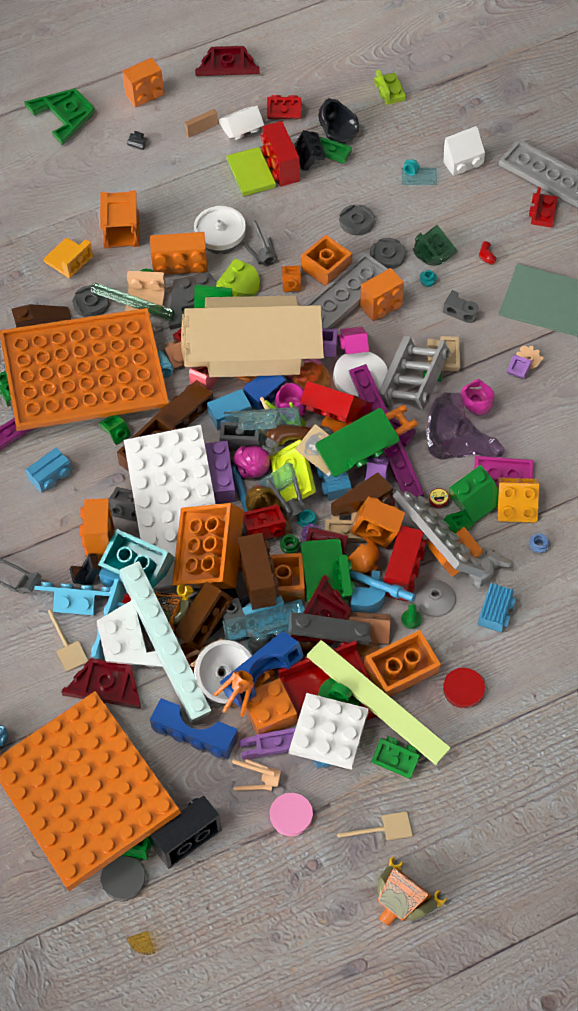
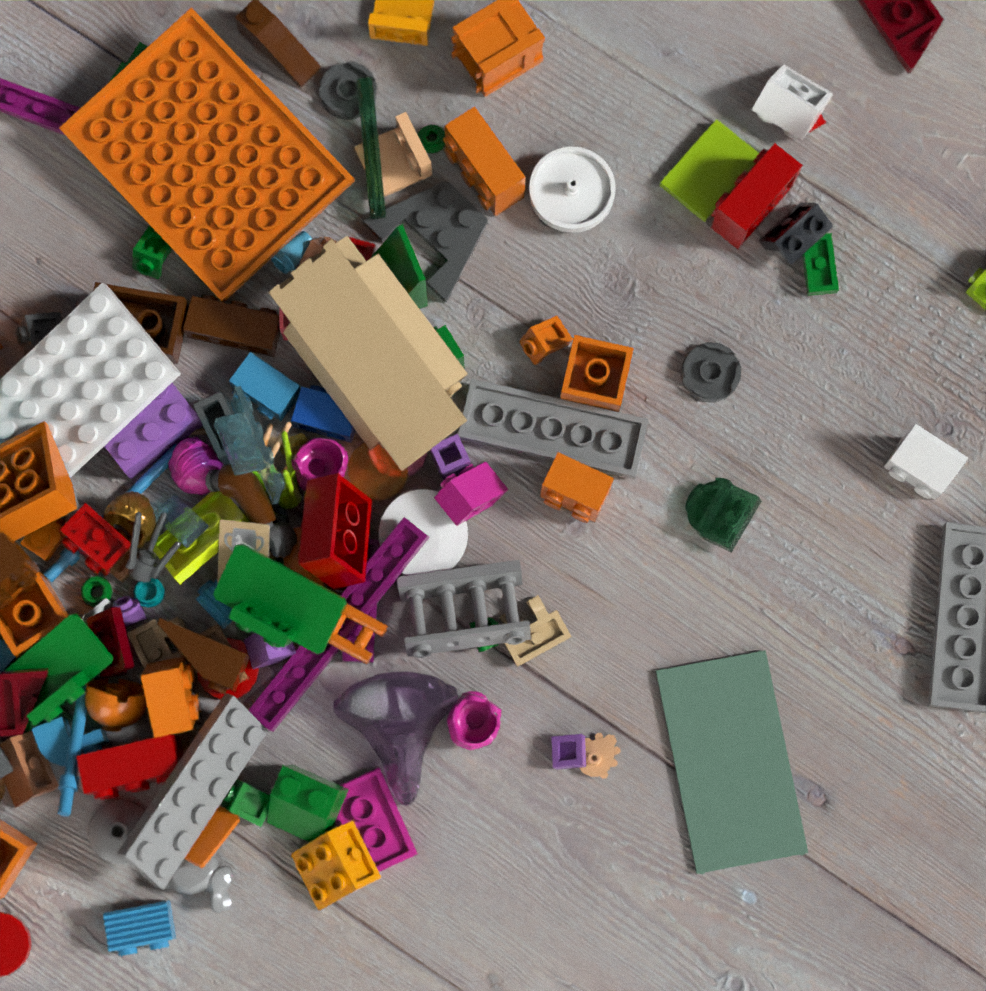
camera: 55 degrees right, 20 degrees up
(49, 470) = (36, 208): dark azure brick -> none
(201, 123) = (754, 47): medium nougat tile -> none
(241, 278) = (496, 272): lime slope -> none
(266, 254) = (564, 282): dark grey plant -> none
(284, 107) = (859, 148): red bracket -> none
(338, 121) = (873, 243): black piece -> none
(388, 252) = (674, 451): dark grey tile -> none
(411, 167) = (849, 399): teal plate -> none
(411, 618) = (66, 824): green plate -> none
(425, 176) = (848, 417): clear light blue tile -> none
(427, 278) = (657, 541): teal plate -> none
(438, 498) = (281, 752): tile -> none
(460, 308) = (627, 621): dark grey leg -> none
(486, 255) = (753, 594): red arm -> none
(539, 538) = (271, 934): medium blue plate -> none
(543, 209) = (894, 636): red bracket -> none

